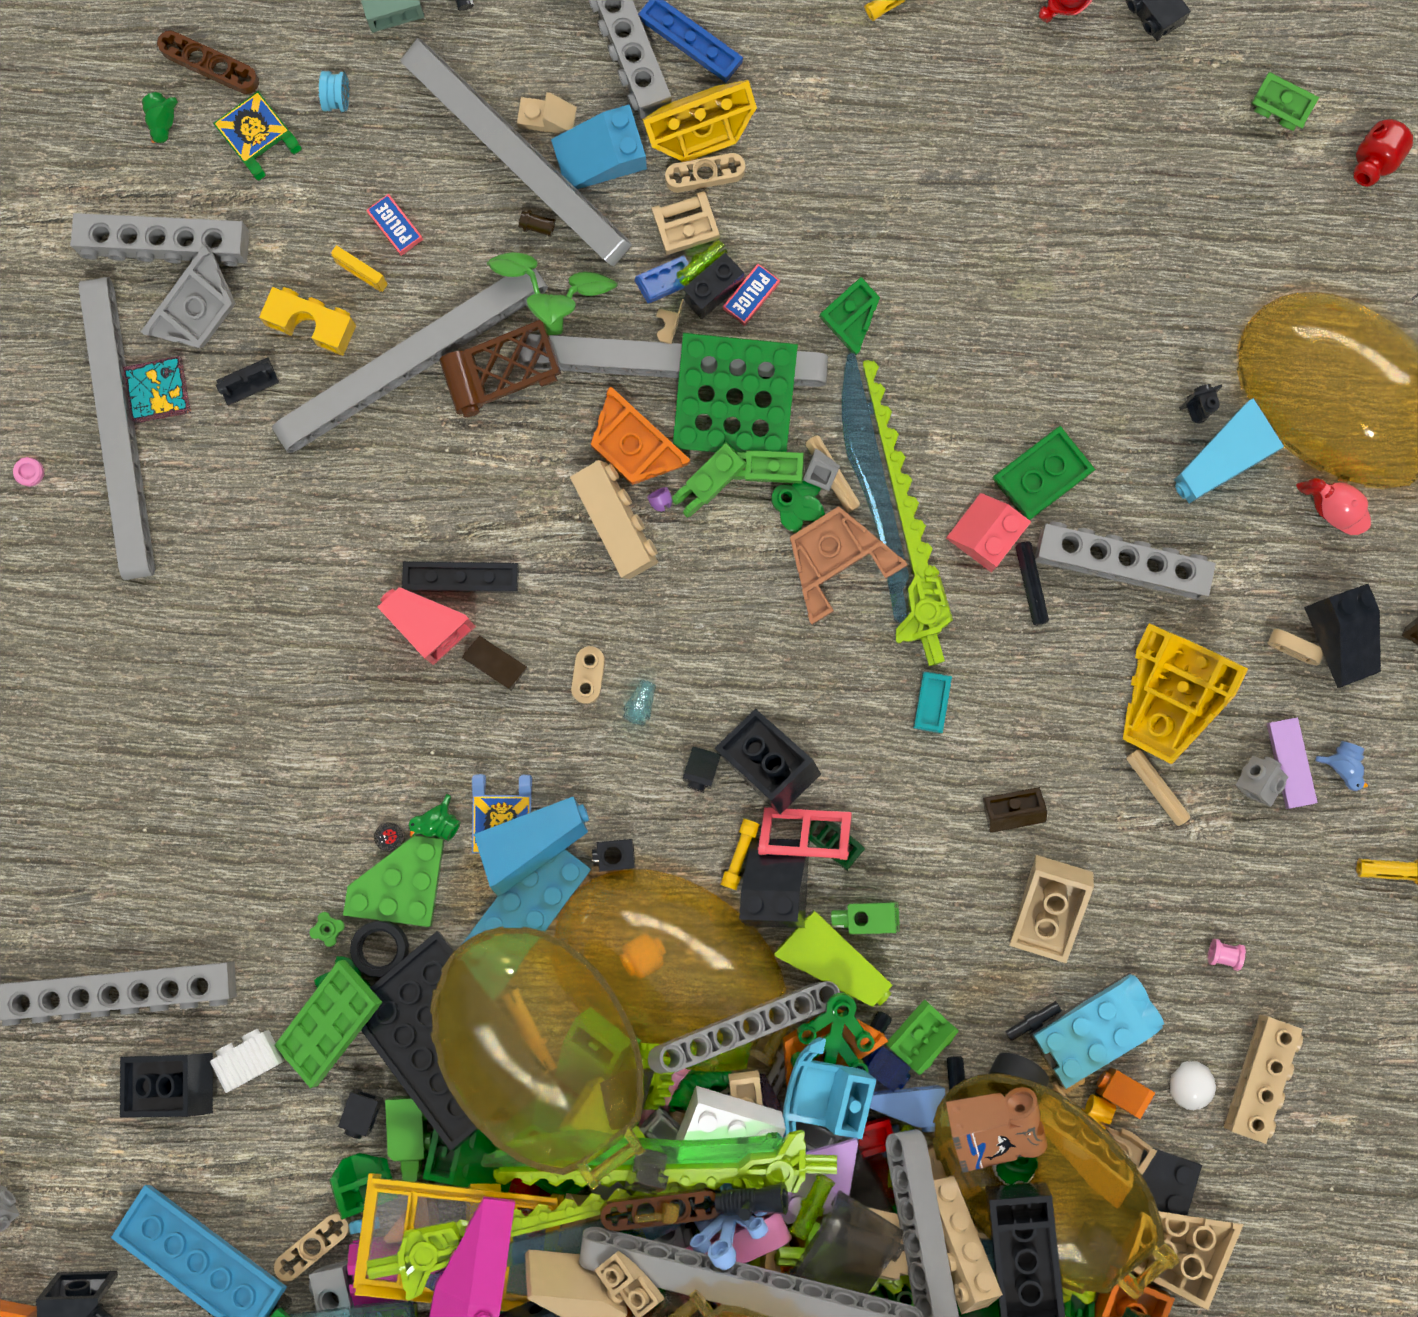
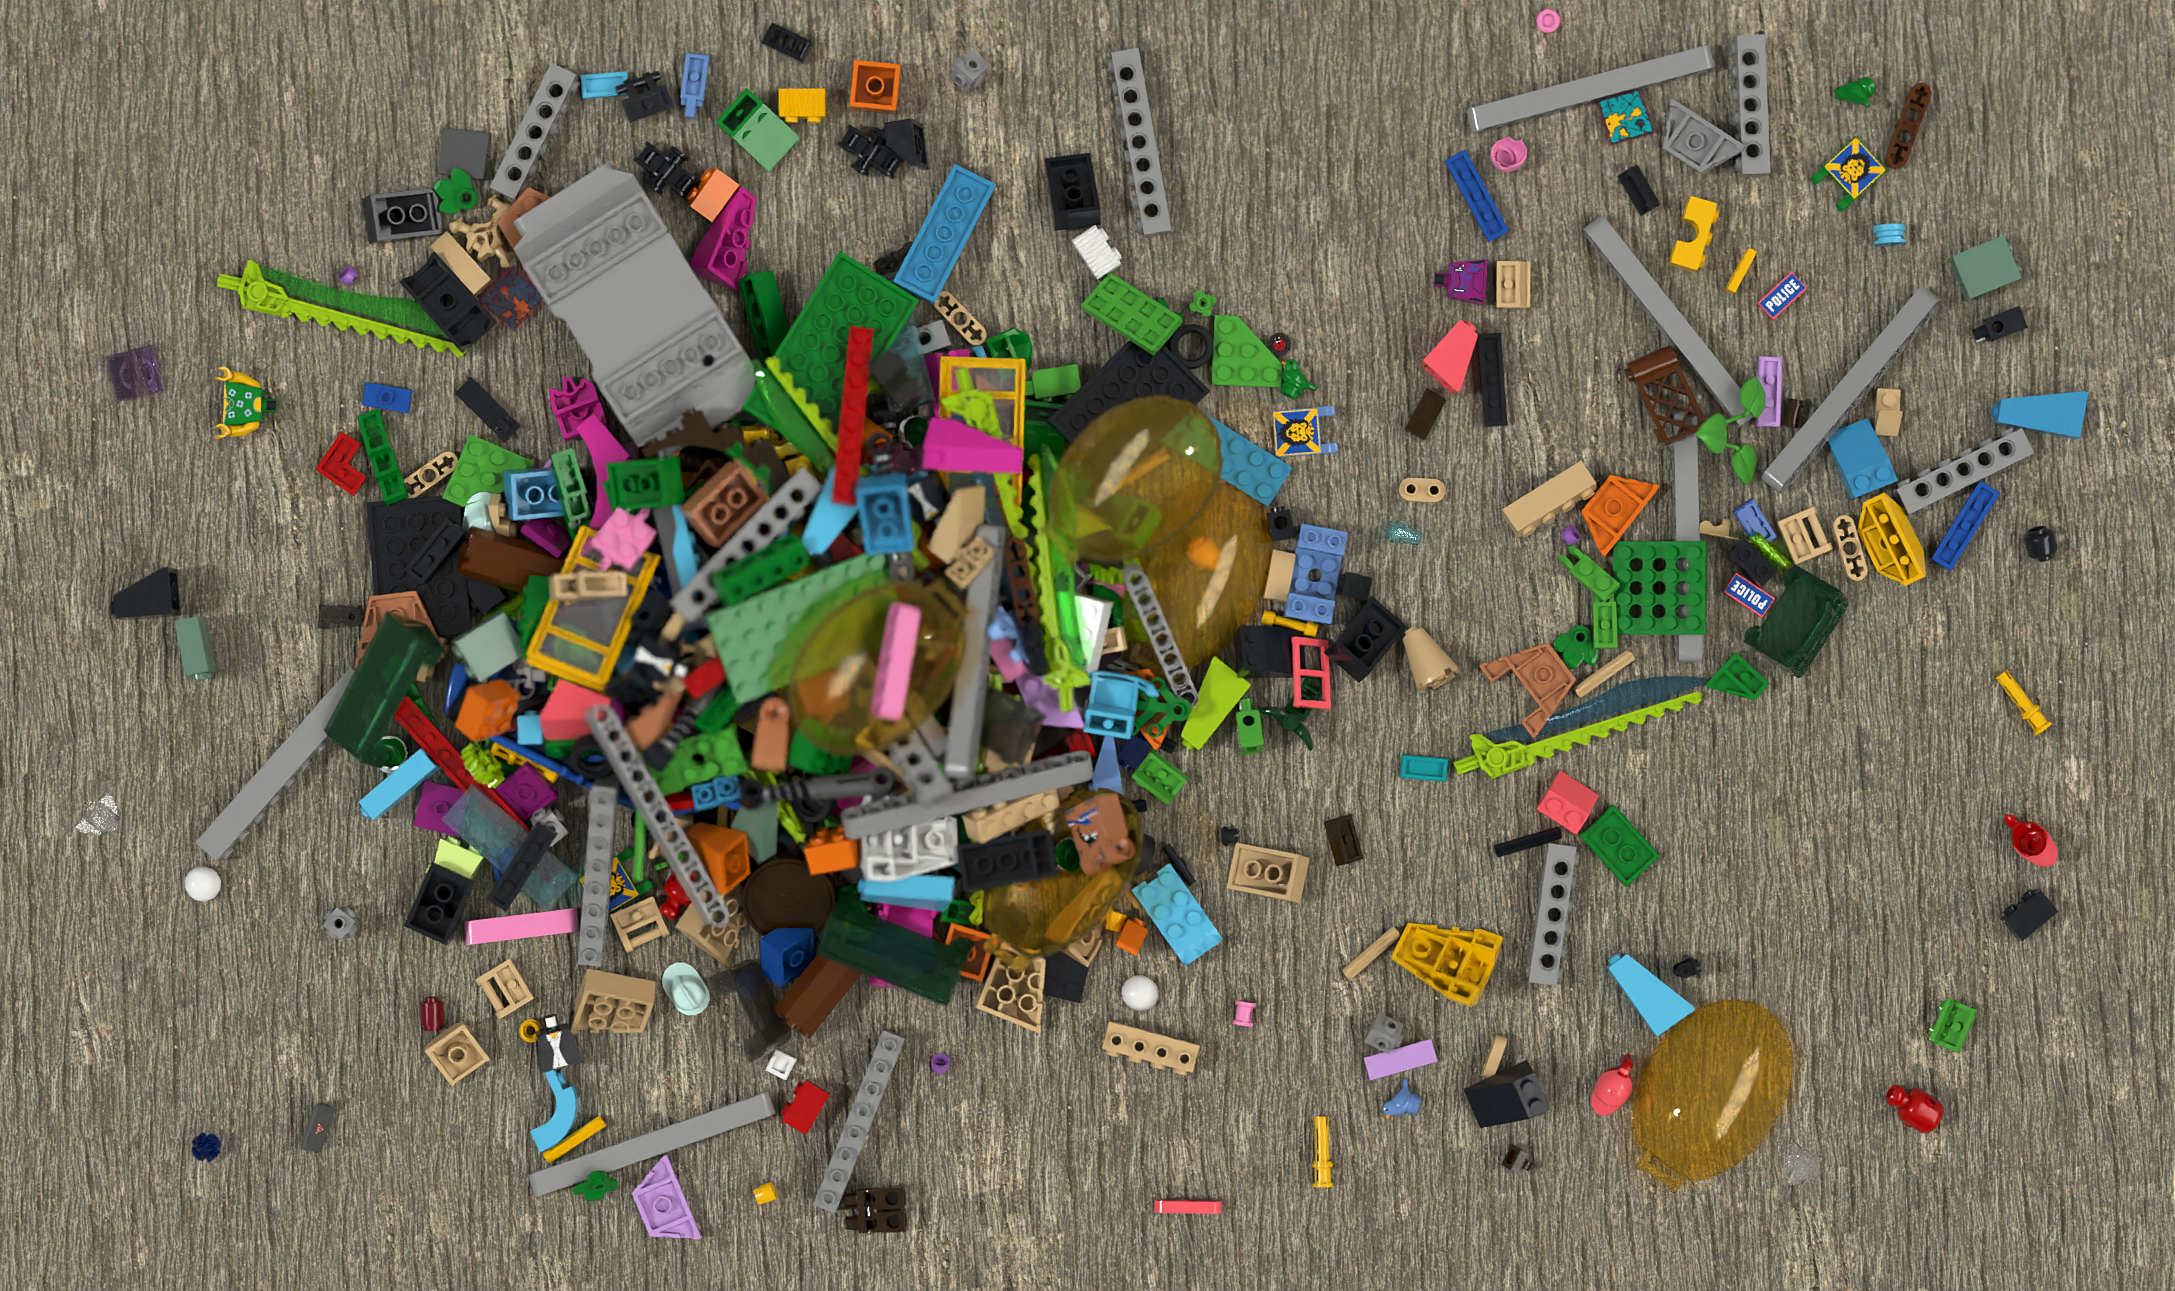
camera: 80 degrees right, 5 degrees up
(184, 532) = (1508, 154): none -> bright pink hair
(231, 576) = (1476, 196): none -> blue plate
(334, 599) = (1464, 281): none -> magenta torso
(345, 541) = (1512, 284): none -> tan plate
(360, 1113) = (1063, 345): black brick -> none
(486, 245) = (1770, 376): none -> lavender tile
(528, 842) = (1285, 456): dark azure slope -> none
(648, 1173) = (1049, 569): clear smoke slope -> none
(651, 810) = (1319, 550): none -> medium blue plate
(669, 1214) = (1020, 588): clear yellow hand -> none
(679, 862) = (1279, 576): none -> tan slope
(787, 238) = (1798, 622): none -> clear green windscreen
(800, 686) = (1427, 660): none -> tan cone
(812, 1206) = (1033, 696): clear neon green pin -> none
(821, 470) = (1604, 663): light grey slope -> none
(867, 866) = (1289, 723): none -> dark green plant
(1001, 955) = (1227, 836): none -> black piece

